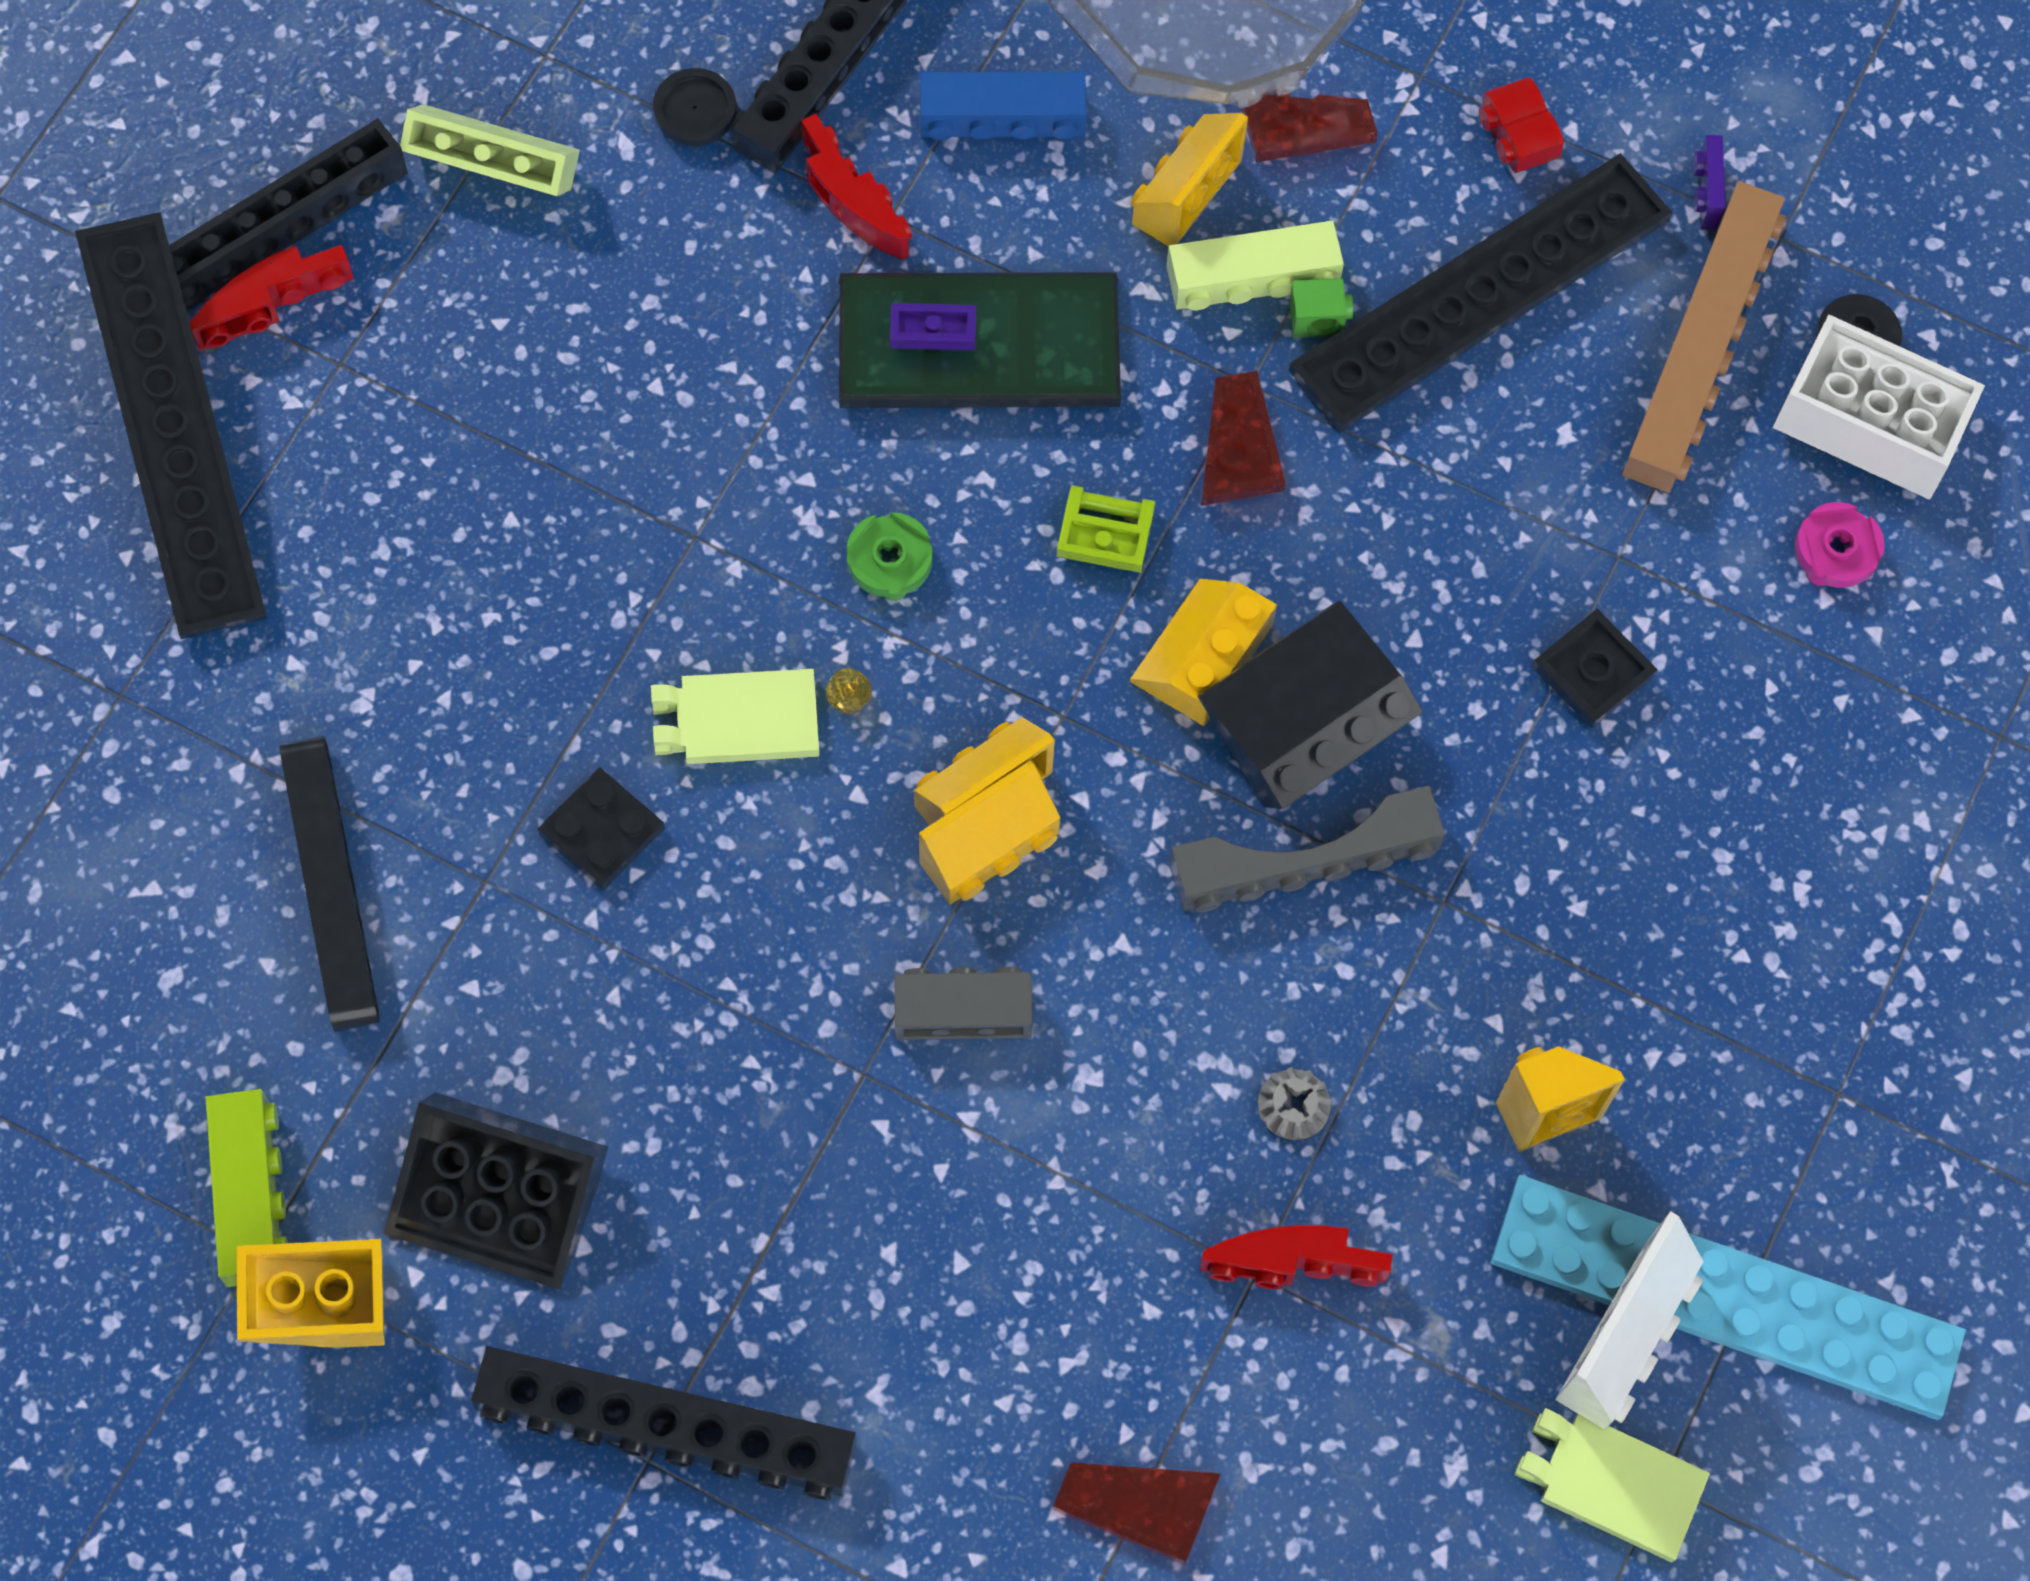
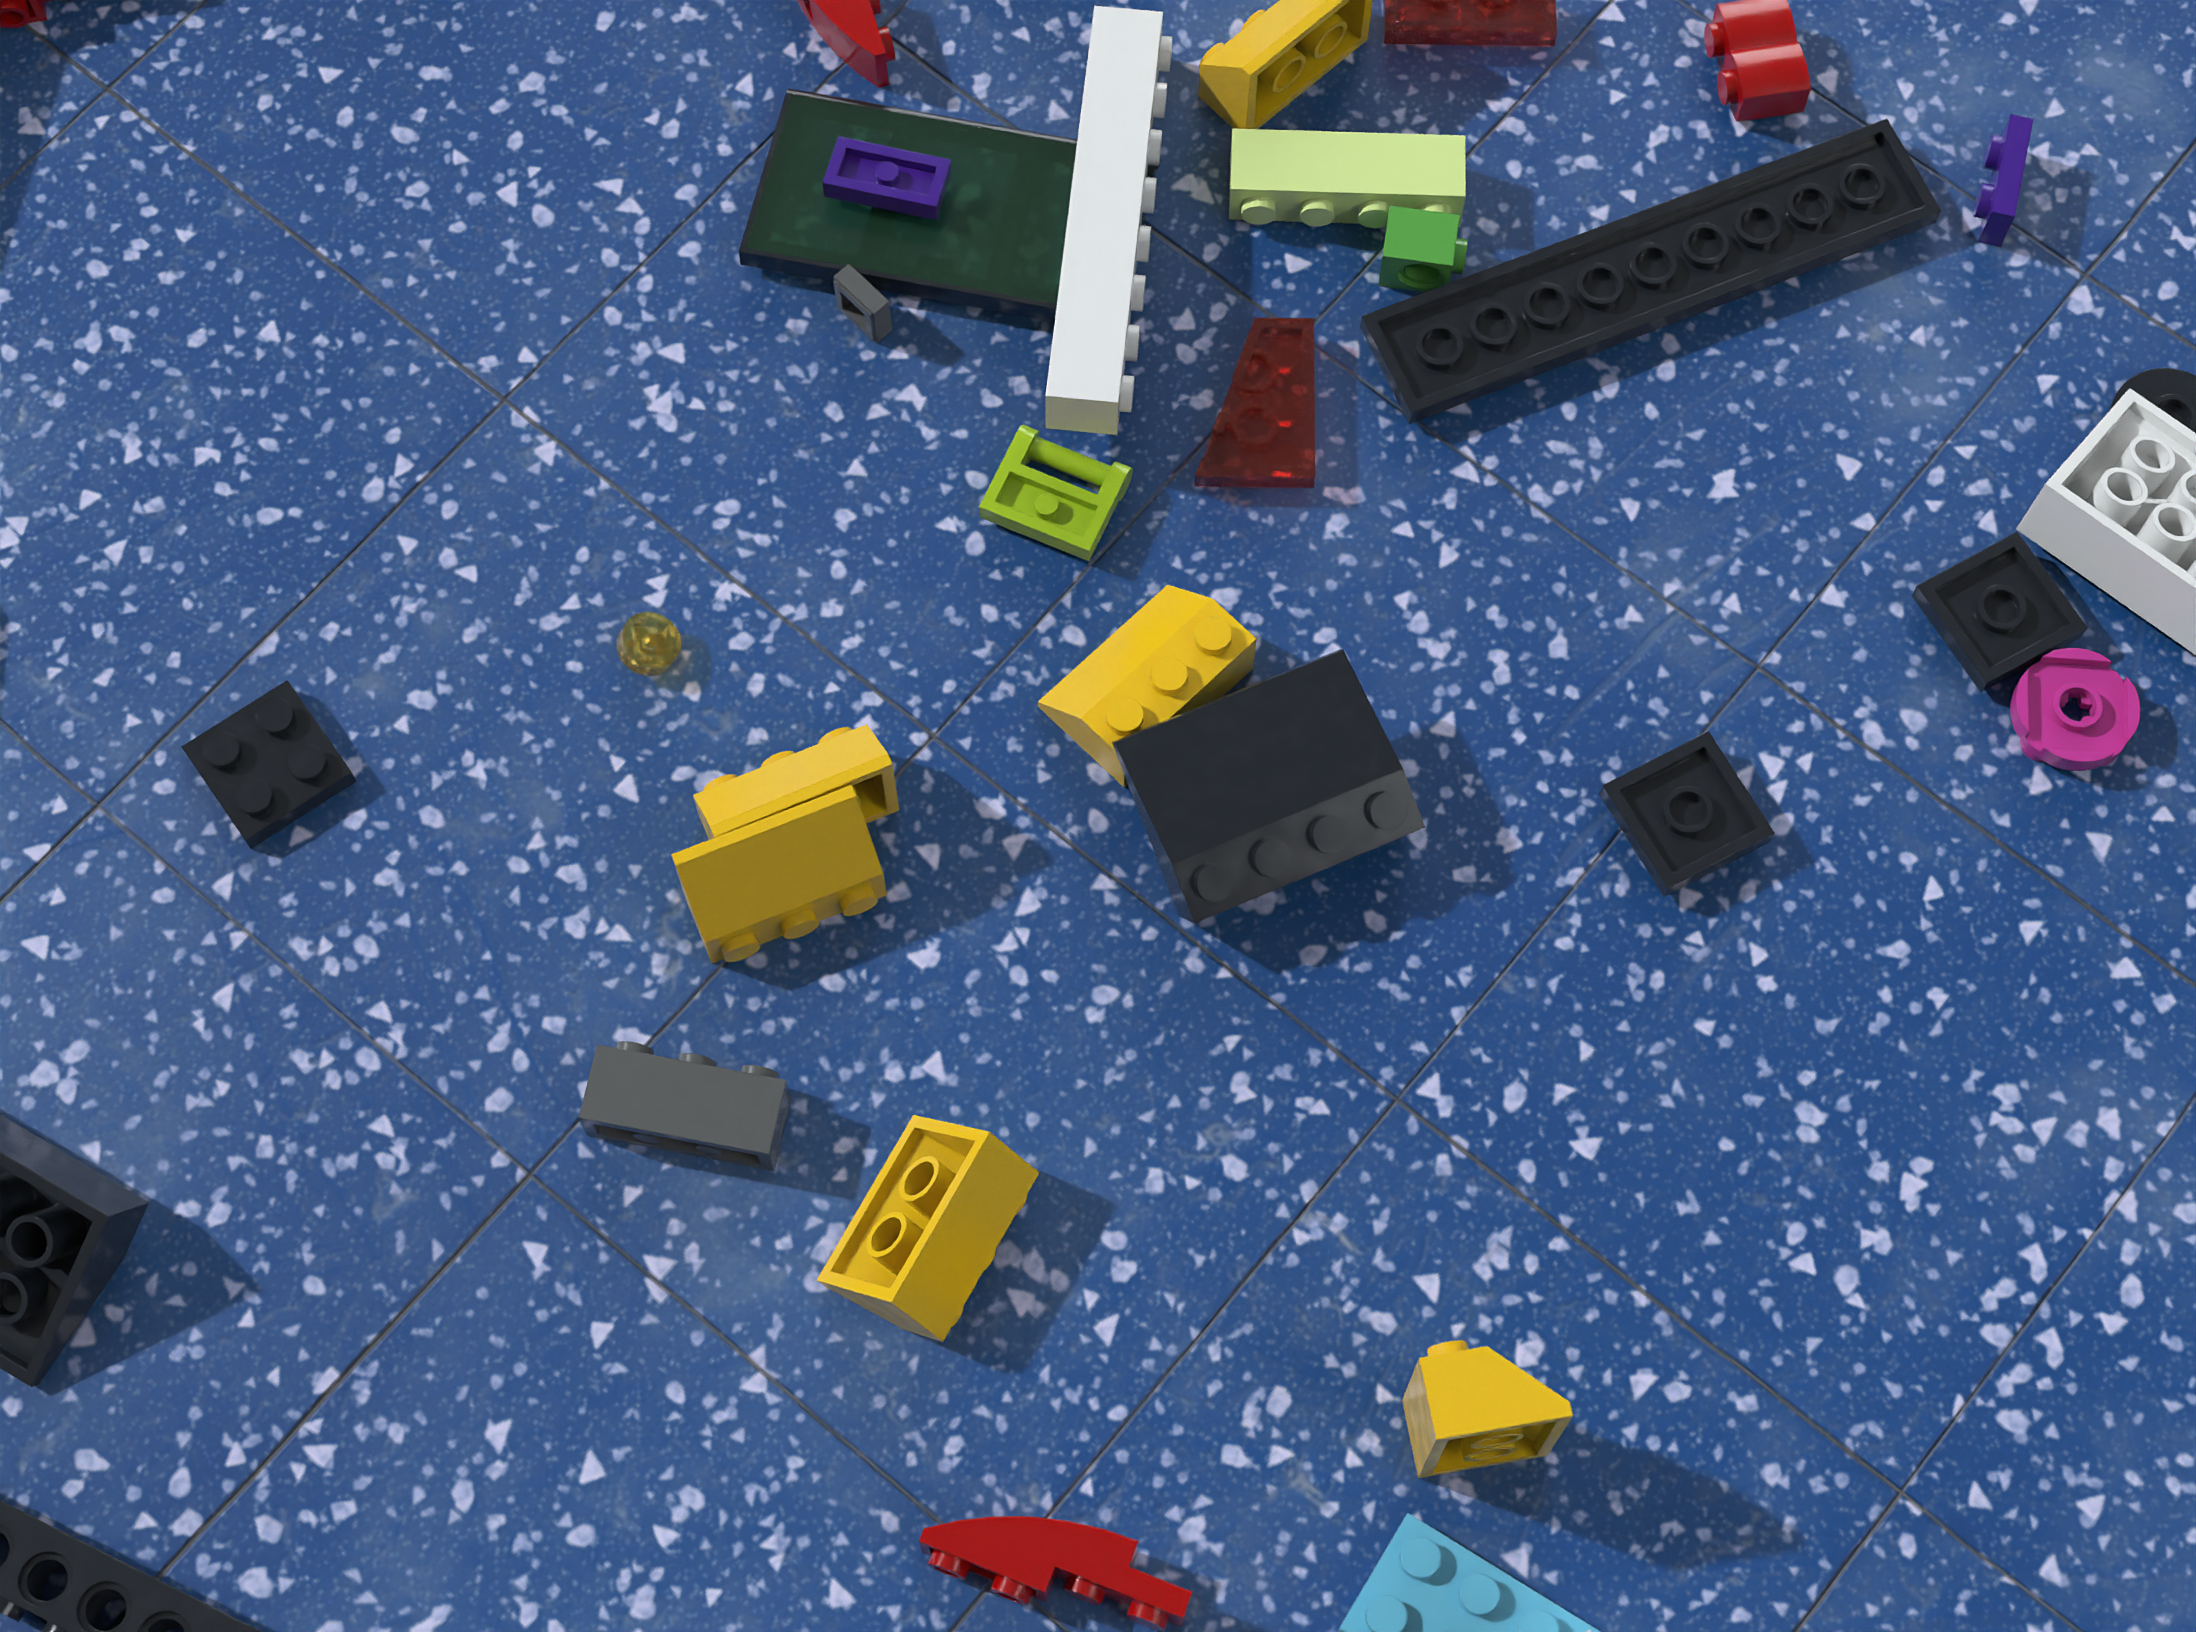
camera: 15 degrees right, 0 degrees up
(739, 716) = (493, 650): yellowish green tile -> none
(895, 578) = (752, 504): bright green plate -> none
(936, 420) = (862, 303): none -> dark grey tile
(1097, 328) = (1105, 220): none -> white brick
(1150, 1050) = (929, 1225): none -> yellow slope
(1219, 871) = (1352, 983): dark grey arch -> none
(1291, 1123) = (1101, 1369): light grey gear -> none
(1703, 337) = (1945, 389): medium nougat brick -> none
(1773, 487) = (1999, 611): none -> black plate

